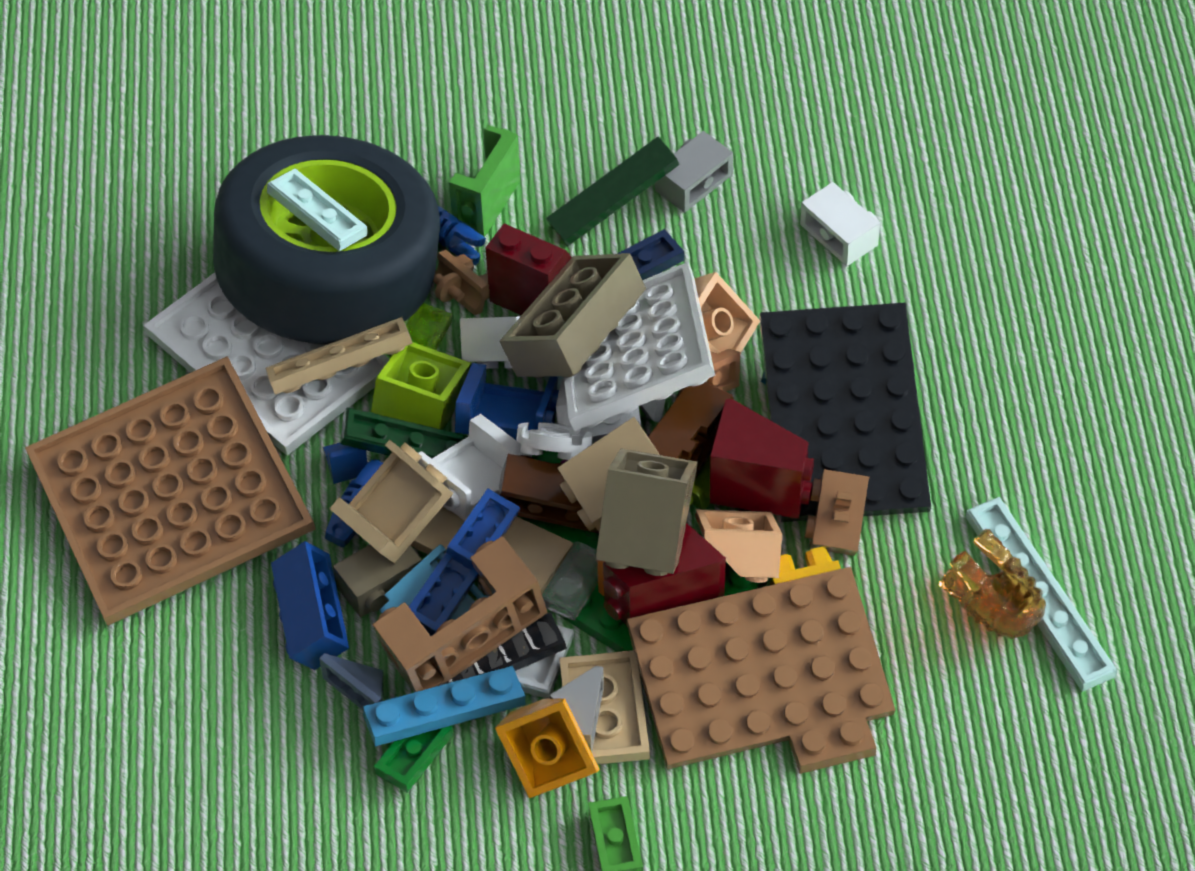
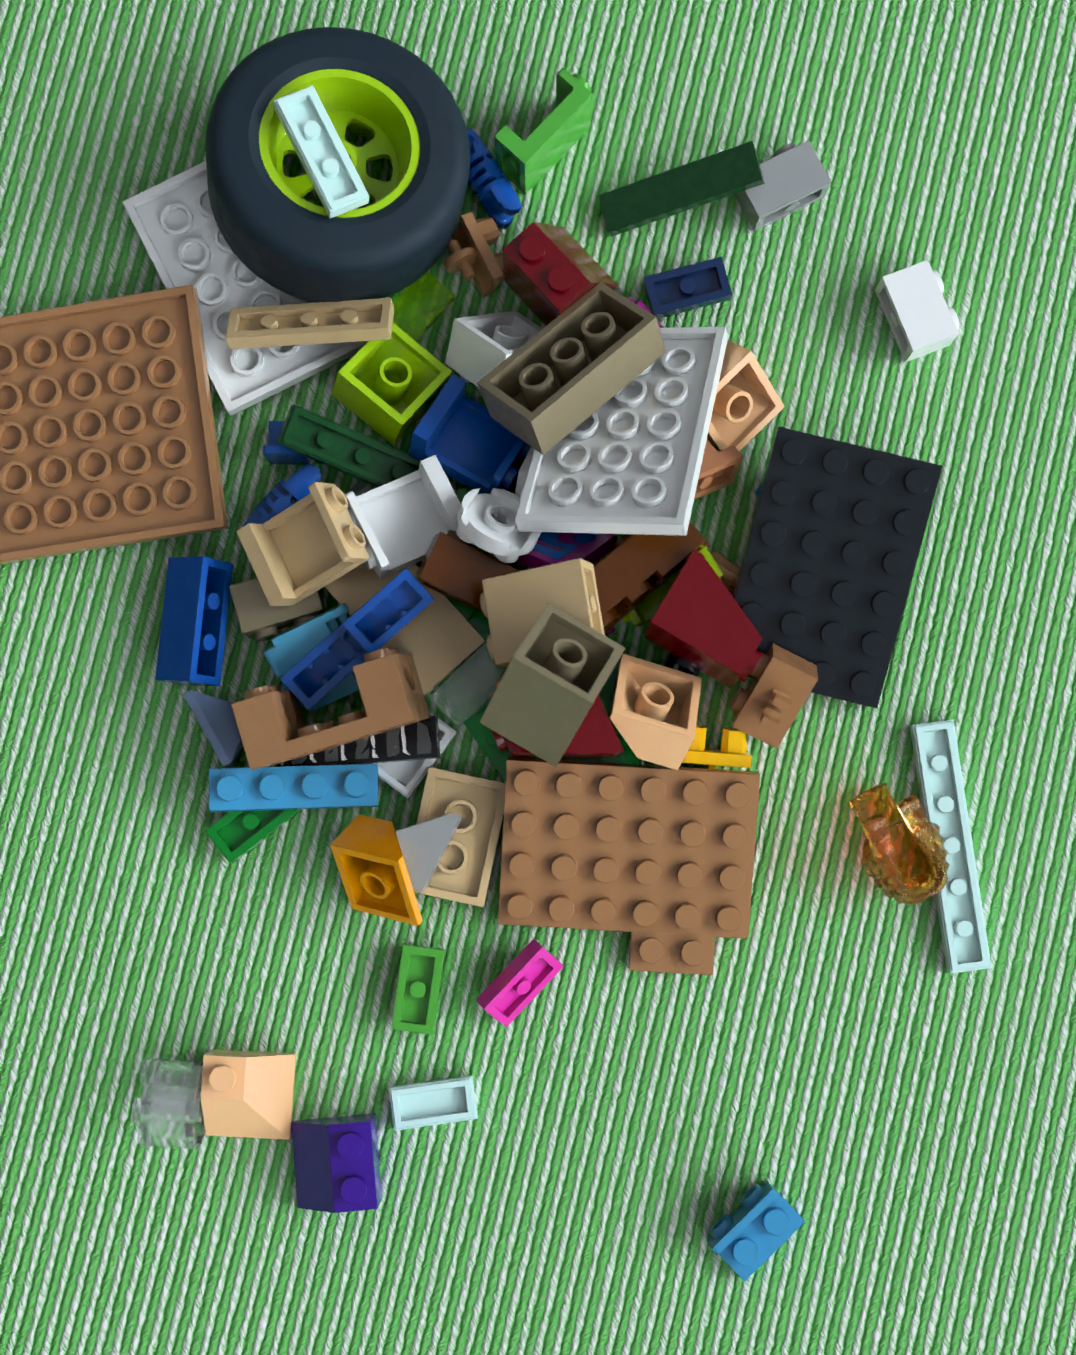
camera: 20 degrees right, 30 degrees up
(706, 803) = (519, 983): none -> dark pink plate

